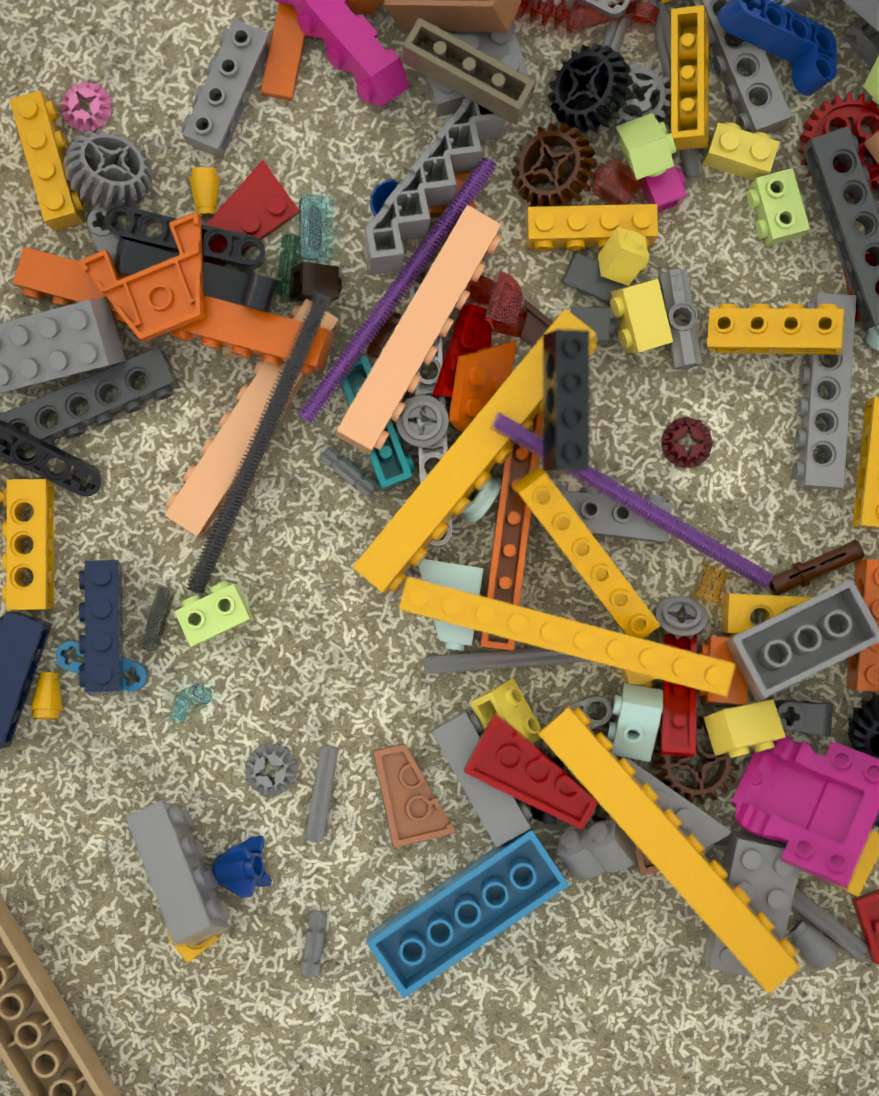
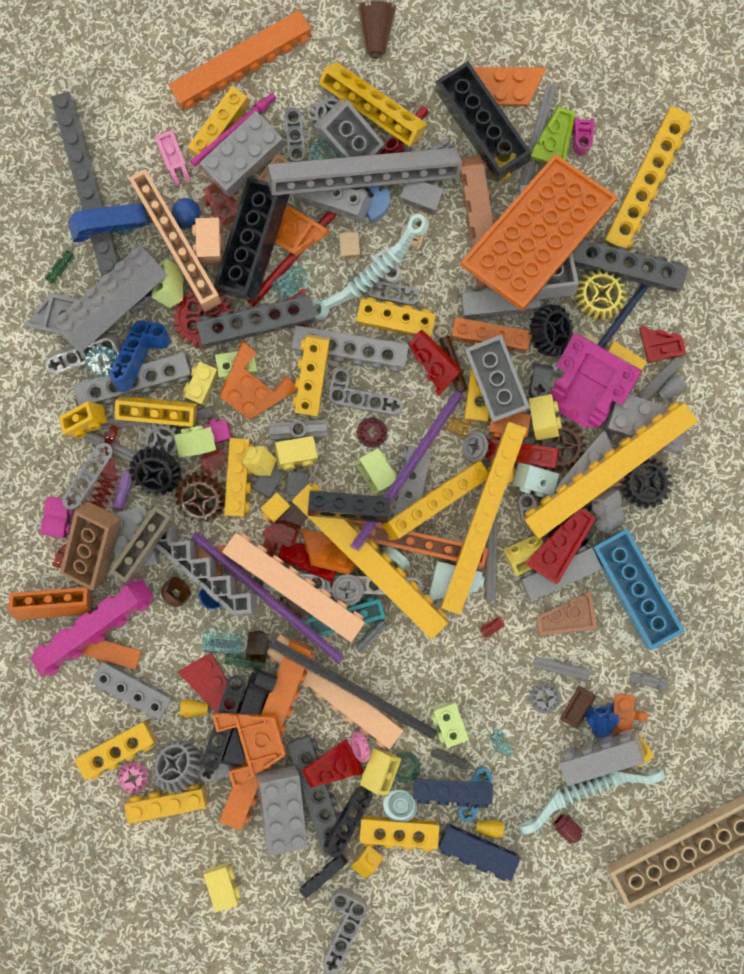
camera: 85 degrees left, 0 degrees up
(56, 826) = (568, 828): none -> dark red brick
(73, 542) = (400, 806): none -> light aqua piece
(103, 807) = (559, 799): none -> light aqua piece
(104, 29) = (87, 762): none -> yellow brick
(122, 544) = (414, 767): none -> clear green gear
(126, 504) = (380, 771): none -> light yellow brick
(129, 425) = (333, 766): none -> red wing
(164, 468) = (360, 746): none -> bright pink gear
(259, 827) = (578, 707): none -> reddish brown tile
(265, 905) = (624, 707): none -> orange plate
(380, 671) = (491, 627): none -> clear red pin
(396, 131) = (168, 595): none -> reddish brown hair
(546, 292) = (275, 508): none -> yellow brick
(550, 43) = (123, 490): none -> medium lavender axle
(625, 452) = (376, 471): none -> yellowish green brick
(640, 925) = (660, 493): none -> black gear
(735, 227) = (246, 391): none -> orange wing
(745, 427) = (343, 387): none -> light grey beam
(816, 539) = (437, 363): none -> red wing

